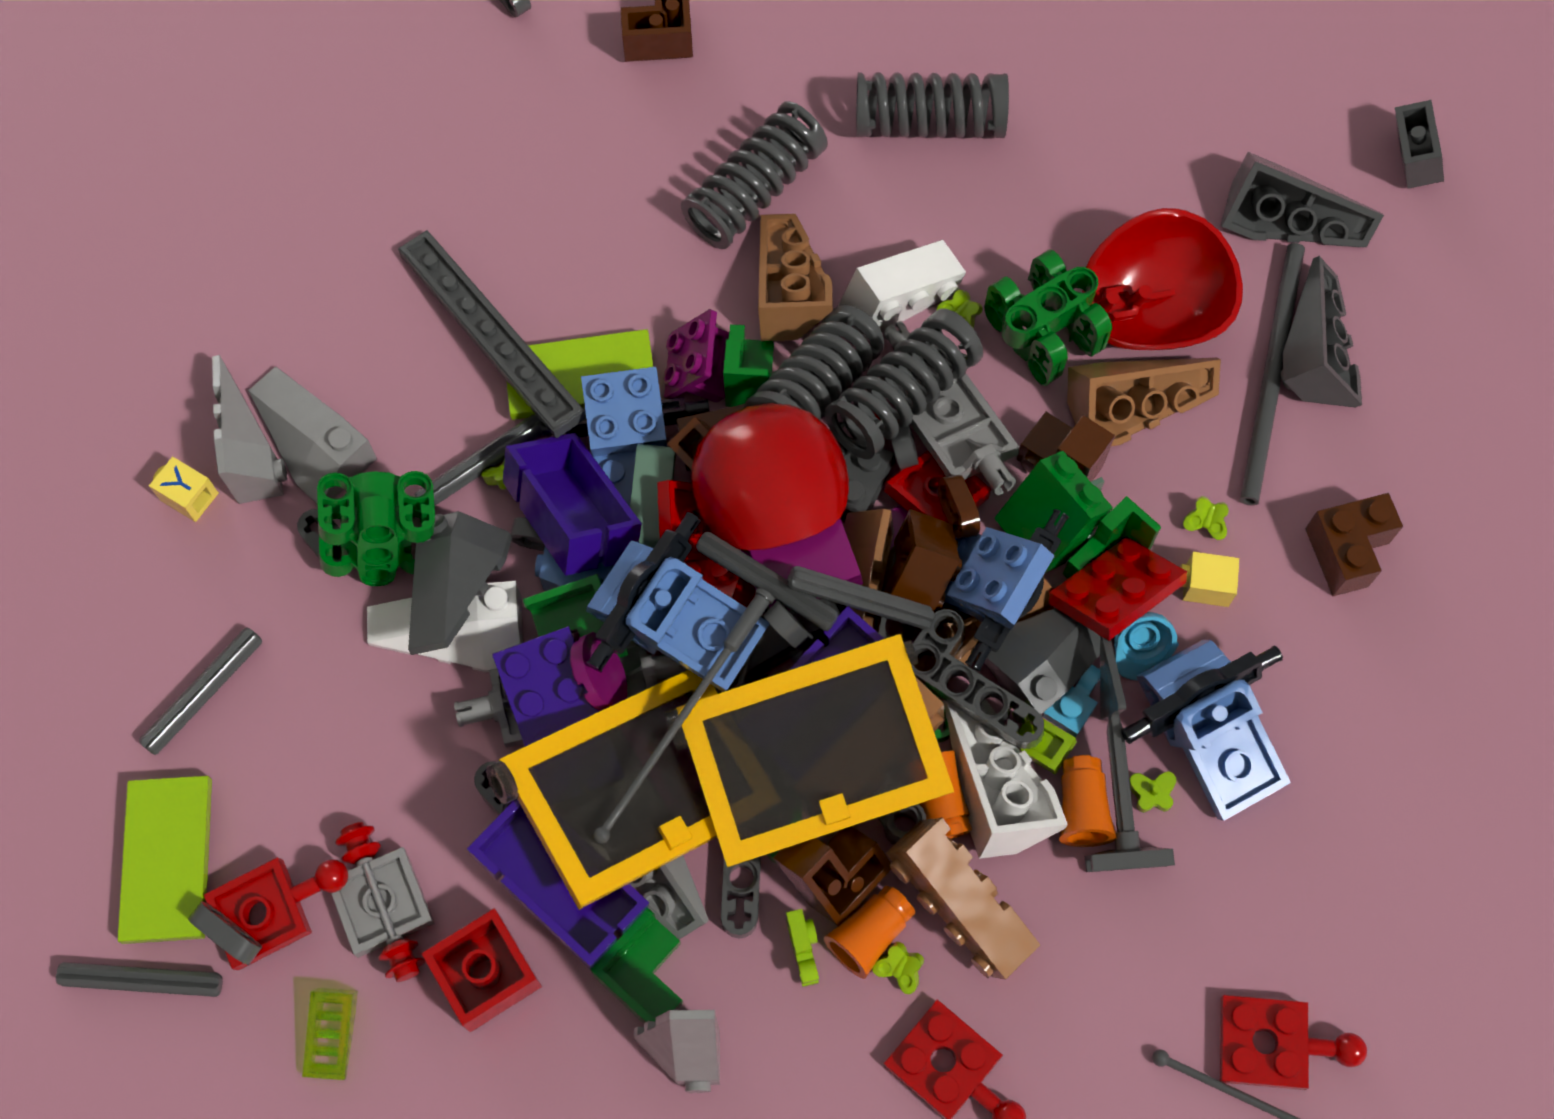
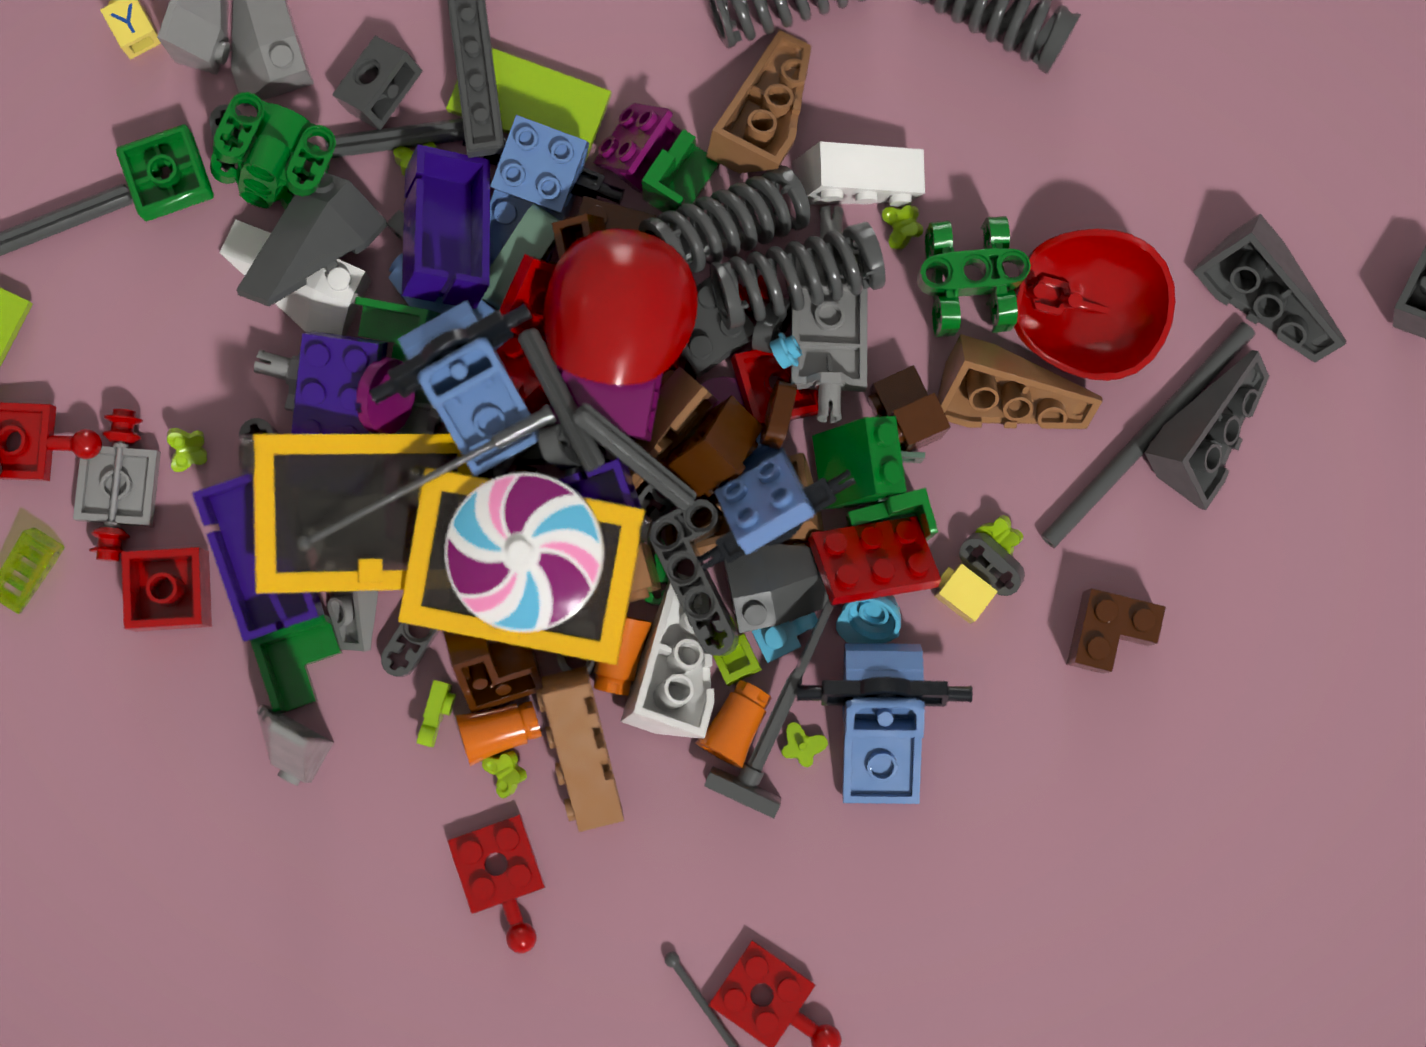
camera: 20 degrees right, 15 degrees up
(284, 574) = (143, 165): none -> green brick
(430, 831) = (187, 447): none -> lime piece
(437, 423) = (377, 82): none -> dark grey brick
(813, 731) = (524, 552): none -> dish
(932, 450) = (786, 350): none -> medium azure plate
(1219, 534) = (992, 563): none -> dark grey beam

